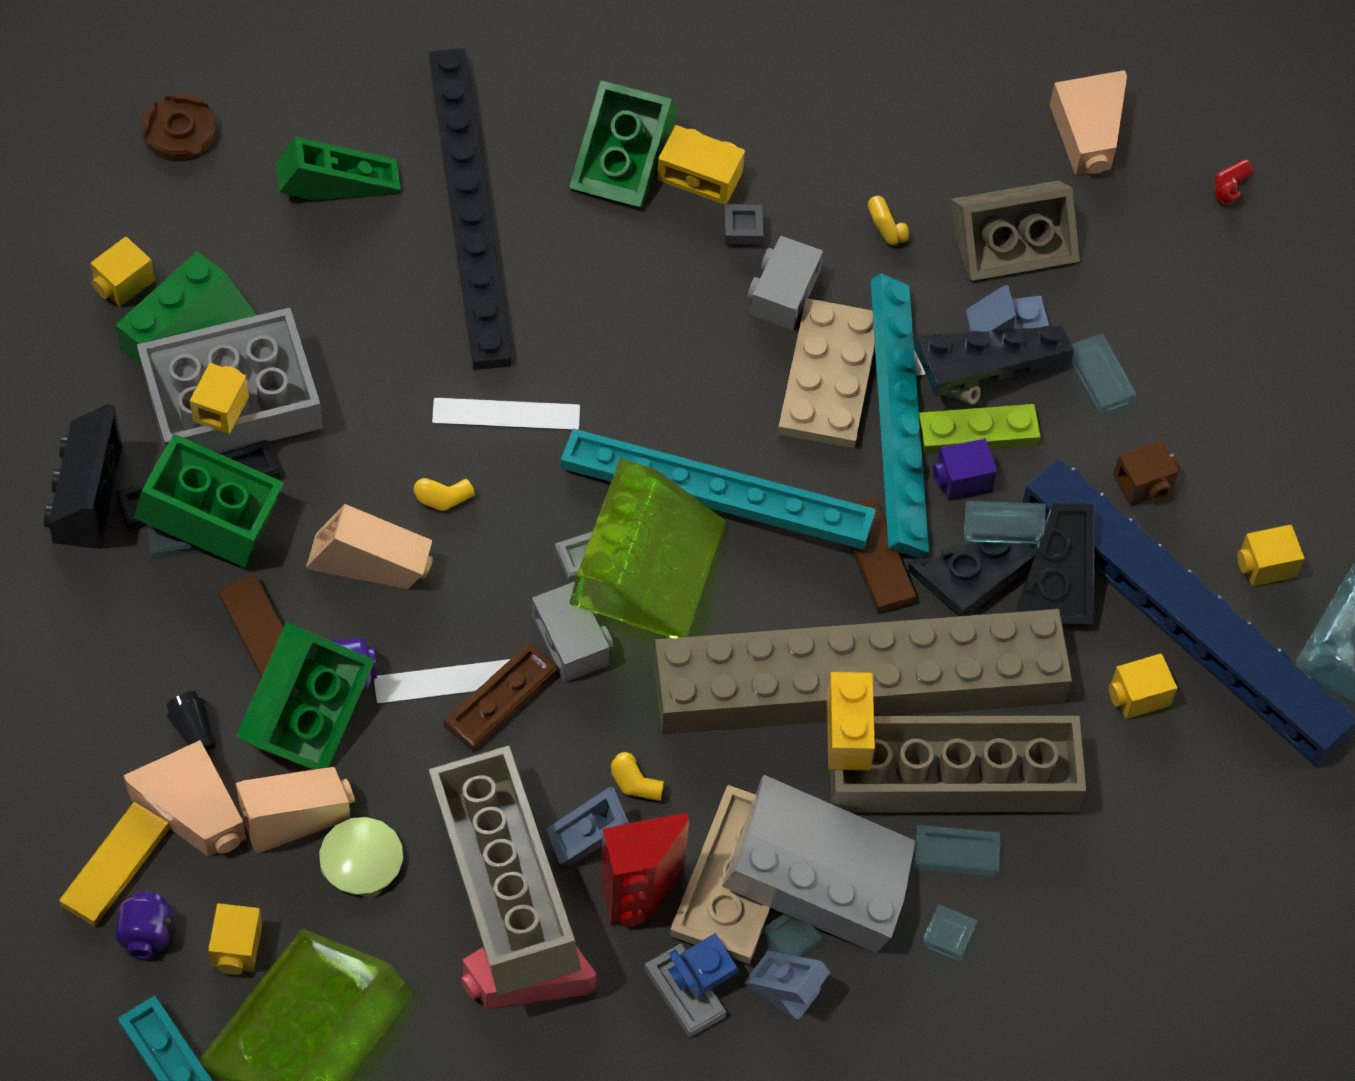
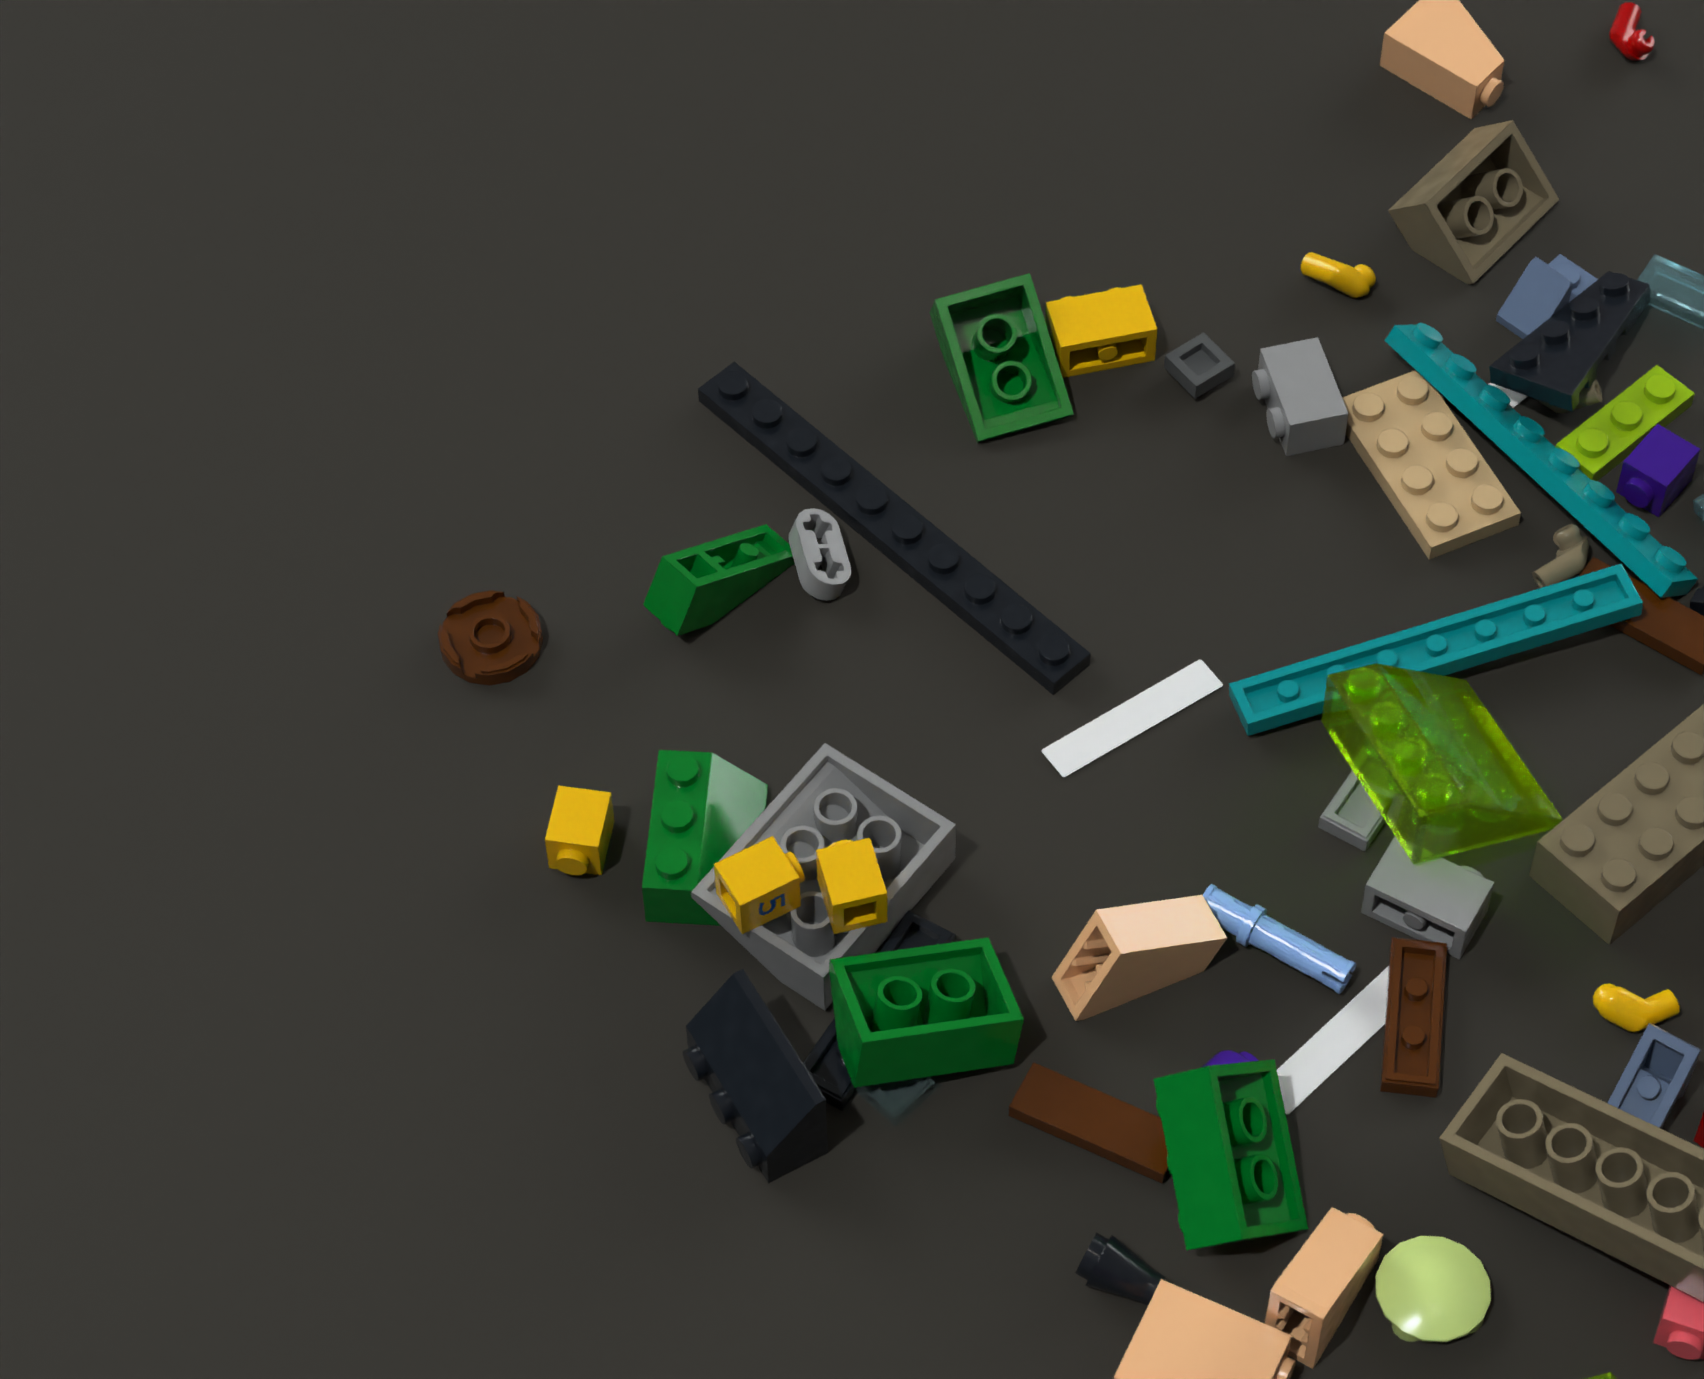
camera: 30 degrees left, 5 degrees down
(169, 363) = (759, 884): none -> yellow brick
(401, 193) = (829, 553): none -> light grey beam
(441, 496) = (1151, 847): yellow arm -> none
(454, 581) = (1287, 945): none -> light blue pin
(857, 490) = (1569, 558): none -> dark tan arm

